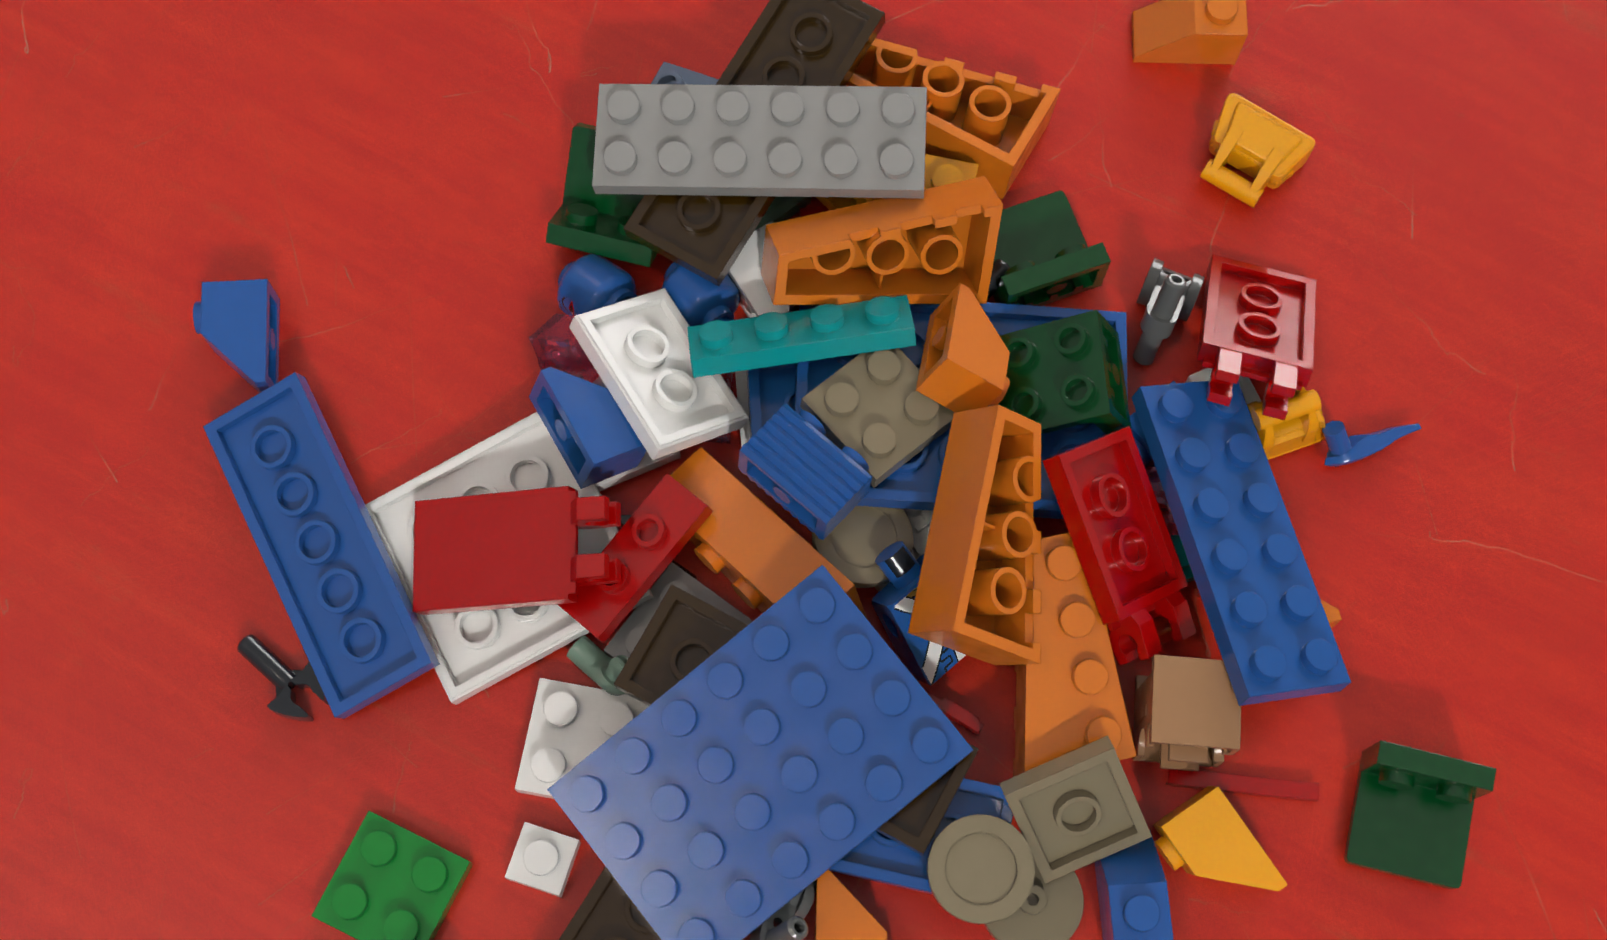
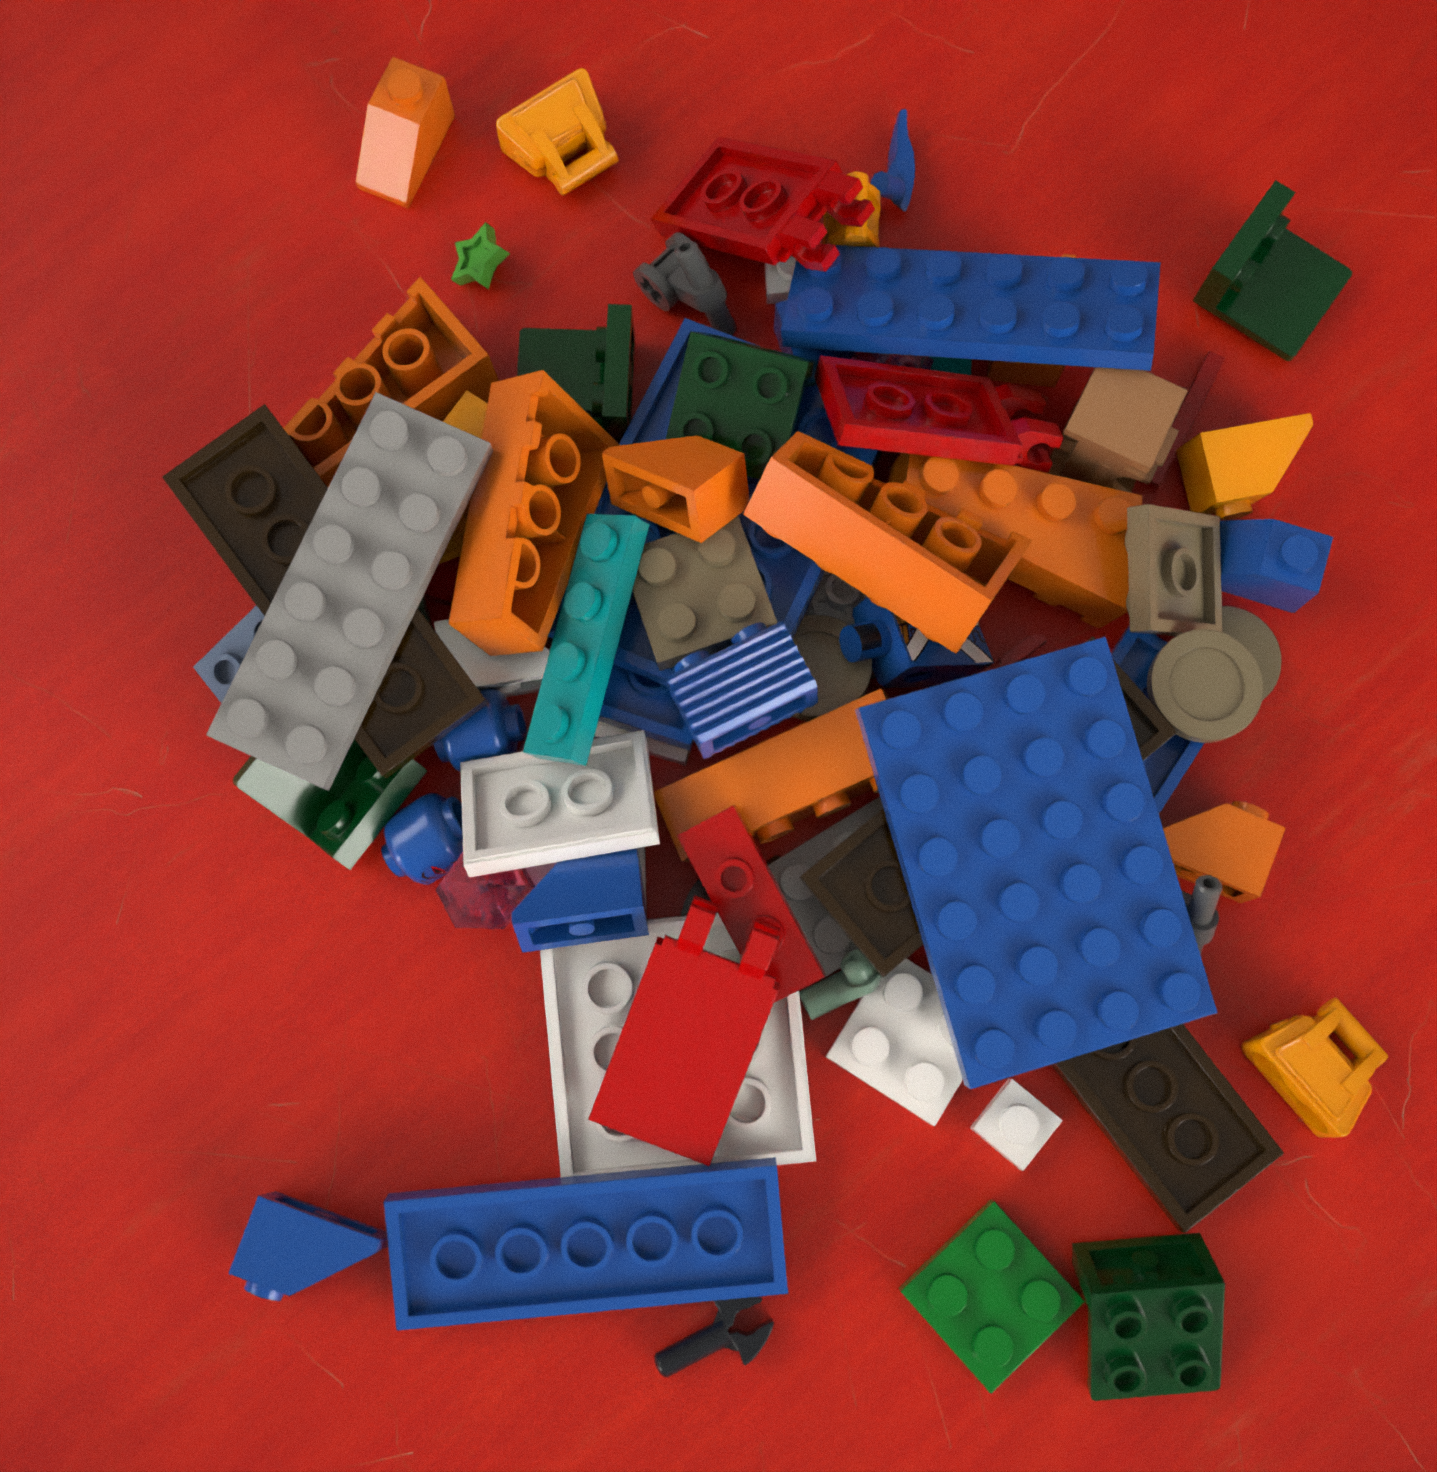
camera: 65 degrees left, 5 degrees up
(1110, 132) = (478, 257): none -> bright green piece

